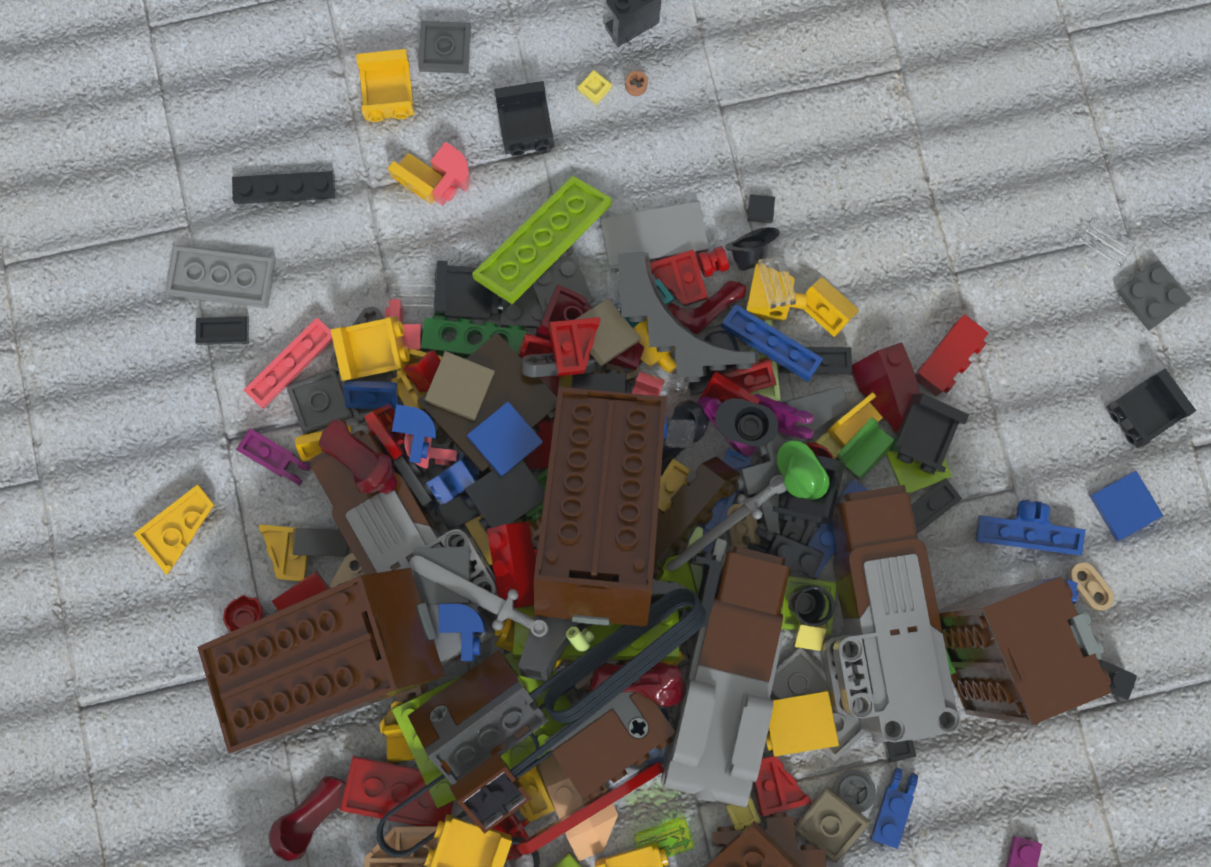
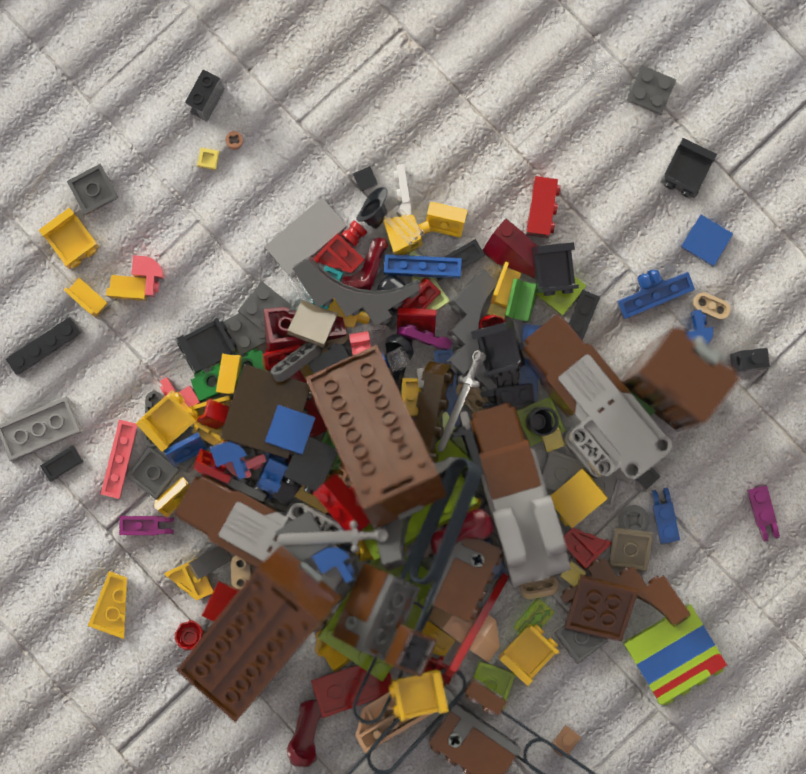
camera: 25 degrees left, 5 degrees up
(365, 161) = (86, 297): none -> yellow panel
(370, 470) = (217, 498): dark red hair -> none
(459, 386) = (241, 412): dark tan tile -> none
(473, 334) = (229, 374): none -> yellow panel
(524, 118) = (175, 208): black panel -> none
(542, 239) = (235, 283): lime plate -> none
(572, 344) = (298, 344): red wing -> none
(580, 640) = (411, 527): yellowish green arm -> none
(693, 808) = (540, 588): none -> tan plate
(746, 422) = (436, 330): black piece -> none
(788, 417) = (457, 313): magenta hinge -> none
(796, 247) = (402, 193): none -> white hinge
(802, 471) = (488, 341): bright green piece -> none

